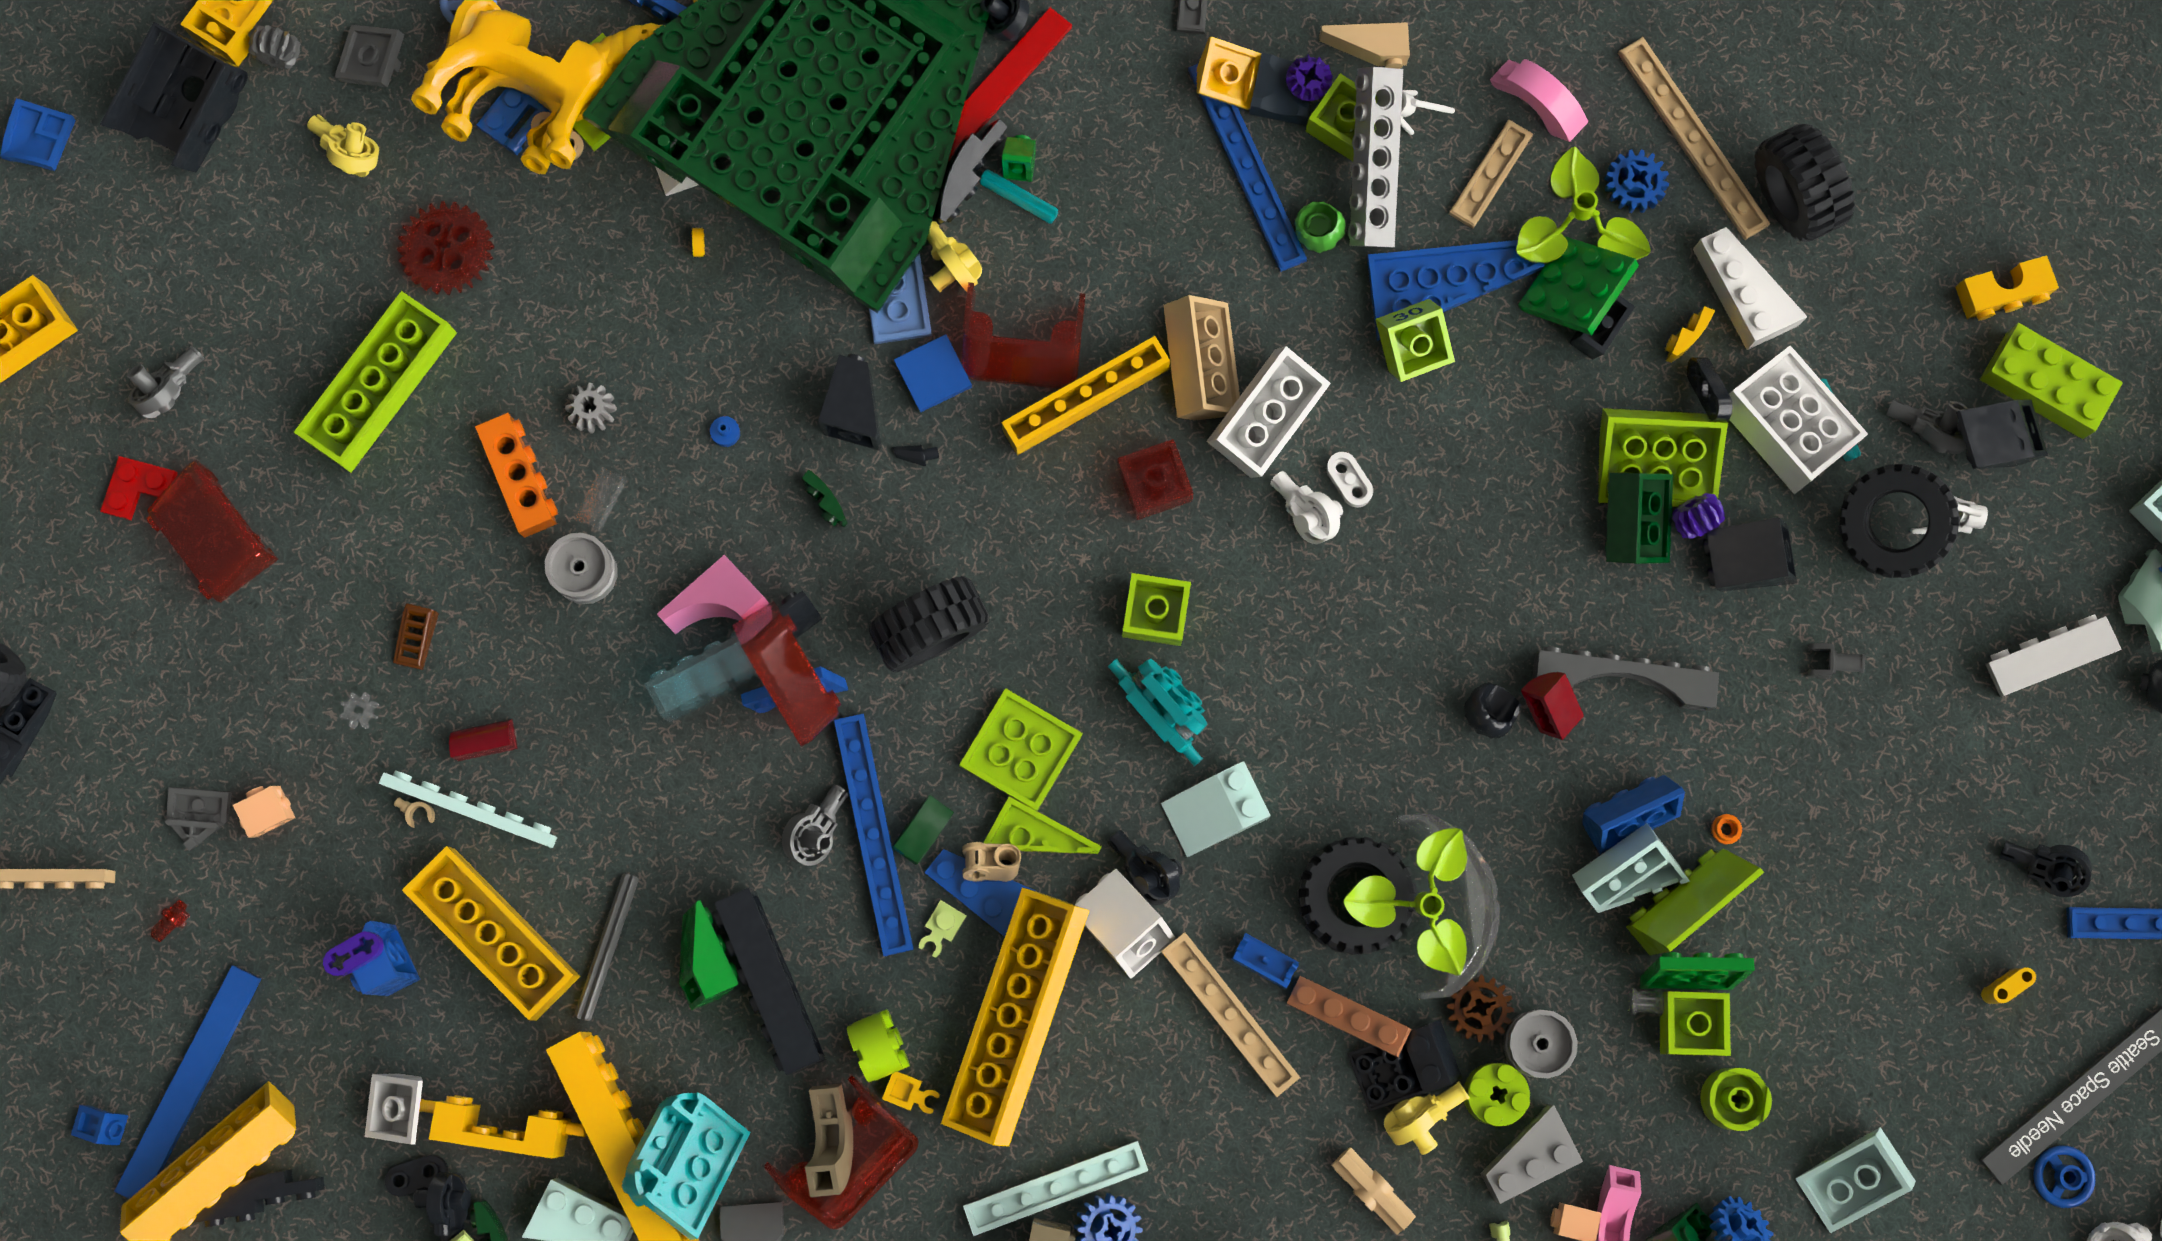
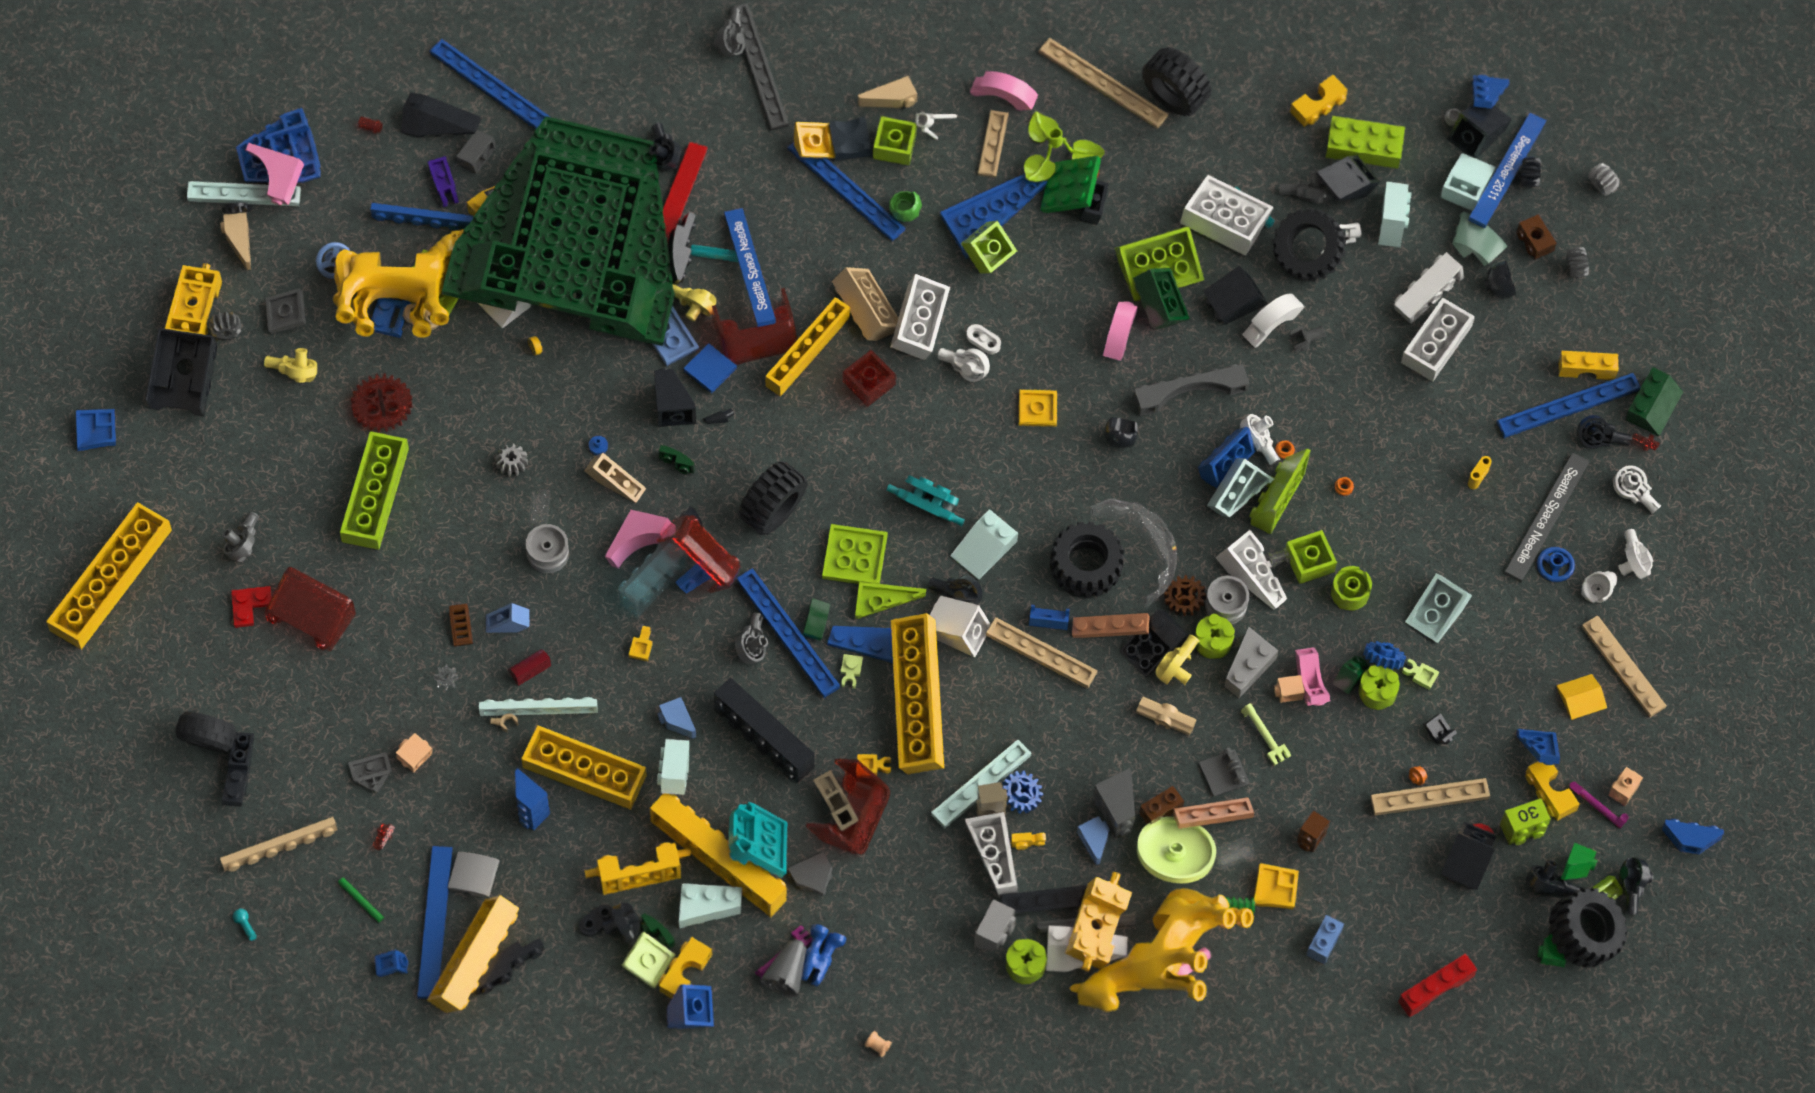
camera: 25 degrees left, 15 degrees down
(100, 1006) = (360, 899): none -> green bar
(270, 1033) = (473, 874): none -> light grey slope
(350, 947) = (519, 790): dark purple beam -> none
(394, 1107) = (572, 880): white slope -> none
(482, 656) = (507, 619): none -> medium blue slope
(494, 436) = (499, 534): orange brick -> none
(606, 947) = (654, 744): dark grey axle -> none
(608, 998) = (674, 766): none -> light aqua wedge
(653, 772) = (641, 646): none -> yellow plate
(657, 905) = (676, 718): none -> medium blue slope
(703, 964) = (718, 732): green slope -> none
(726, 494) = (614, 477): none -> tan slope
(877, 1046) = (843, 740): lime brick -> none
(988, 861) = (866, 619): tan piece -> none
(1019, 158) = (709, 231): green slope -> none
(1051, 241) = (750, 267): none -> blue tile
(1156, 609) = (901, 448): lime brick -> none
(1314, 89) = (870, 129): dark purple gear -> none
(1373, 901) = (1129, 518): lime plant -> none
(1385, 145) = (922, 154): light grey brick -> none
(1385, 618) = (1037, 408): none -> yellow tile
(1552, 704) = (1155, 415): dark red brick -> none
(1558, 544) = (1120, 330): none -> bright pink arch
(1595, 996) = (1247, 562): none -> white wedge
(1636, 168) = (1080, 117): blue gear -> none
(1680, 343) = (1147, 190): yellow slope -> none
(1697, 972) = (1297, 523): green plate -> none
(1698, 515) = (1194, 284): dark purple gear -> none
(1698, 796) = (1261, 436): none -> white pin
(1709, 389) = (1171, 213): black beam -> none
(1746, 290) = (1169, 154): white wedge -> none
(1793, 614) = (1276, 312): none -> white arch
(1801, 923) = (1344, 481): none -> orange plate
(2032, 745) = (1437, 339): none -> white brick
(2049, 513) = (1394, 214): none -> light aqua wedge
(2053, 867) = (1475, 401): black pin -> none

